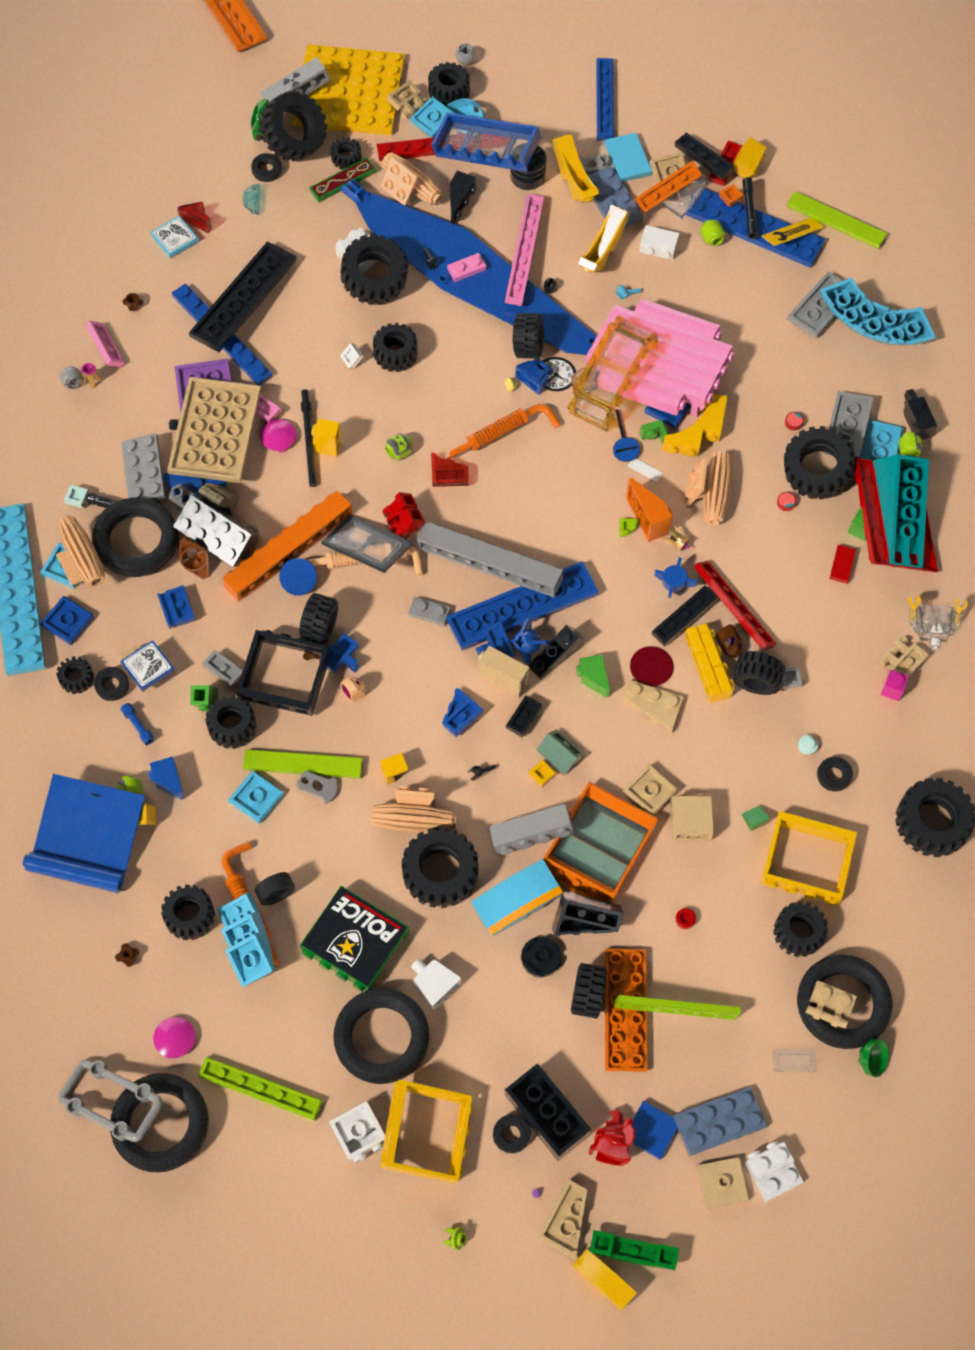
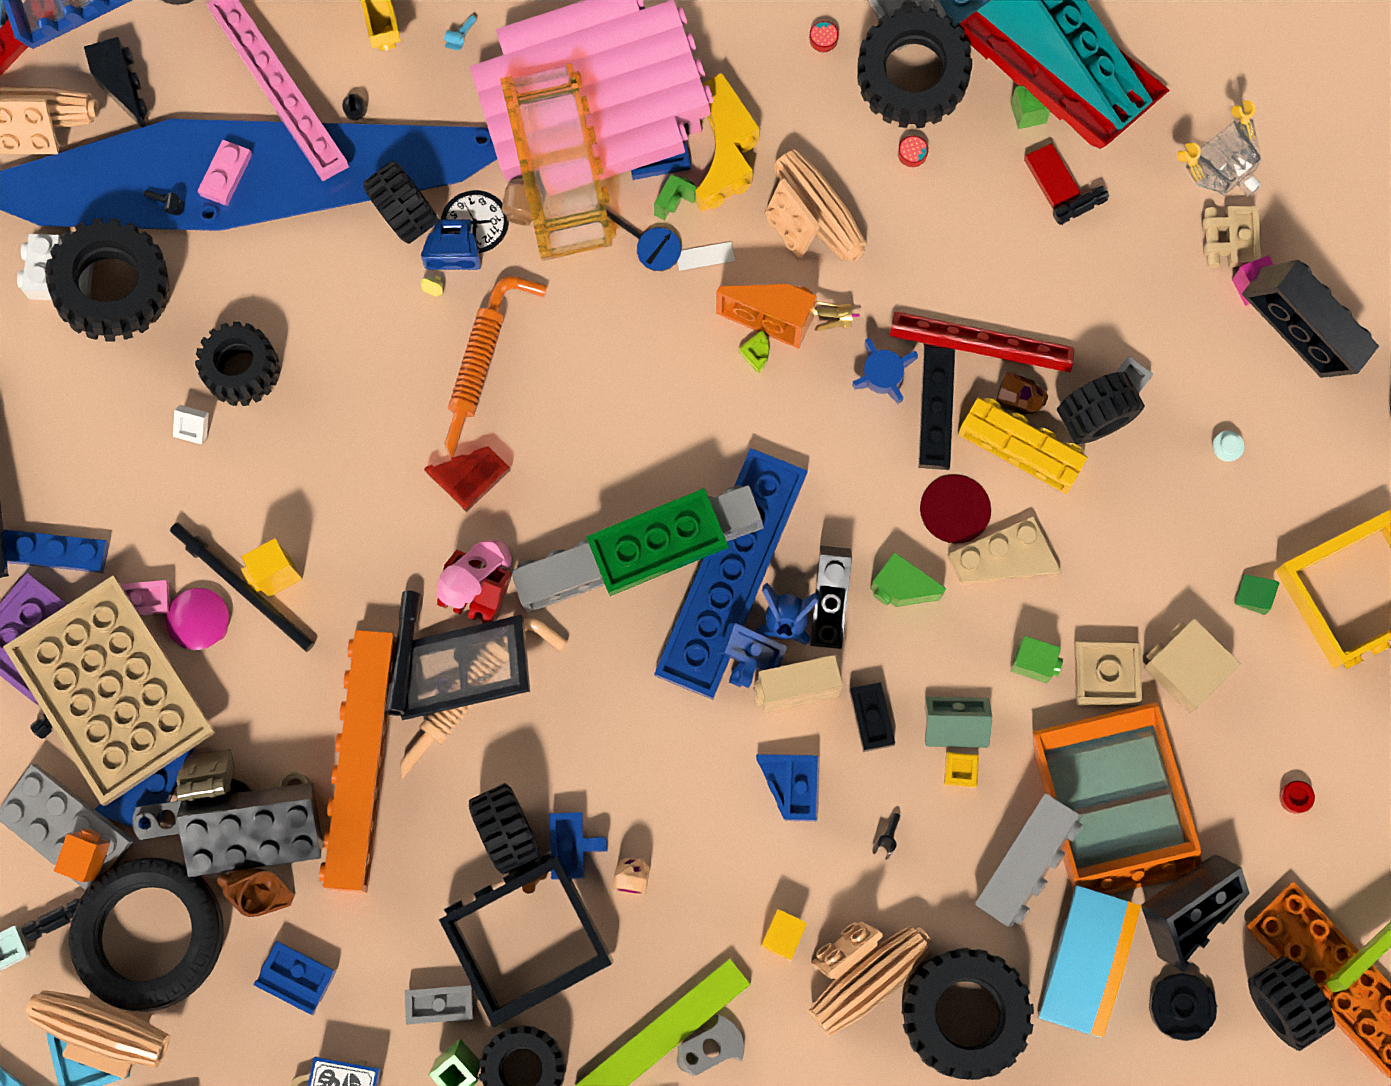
camera: 40 degrees left, 10 degrees up
(140, 482) = (82, 855): none -> orange brick
(298, 576) = (416, 792): blue tile -> none
(331, 528) = (398, 686): none -> black piece
(398, 446) = (372, 496): head -> none
(400, 503) = (461, 581): none -> bright pink piece
(429, 611) = (623, 684): light grey plate -> none
(498, 558) = (657, 542): none -> green plate
(621, 754) = (1037, 660): none -> bright green brick
(842, 586) = (1080, 204): none -> black axle
(842, 765) = (1300, 438): black tyre -> none
(898, 715) = (1310, 319): none -> black brick

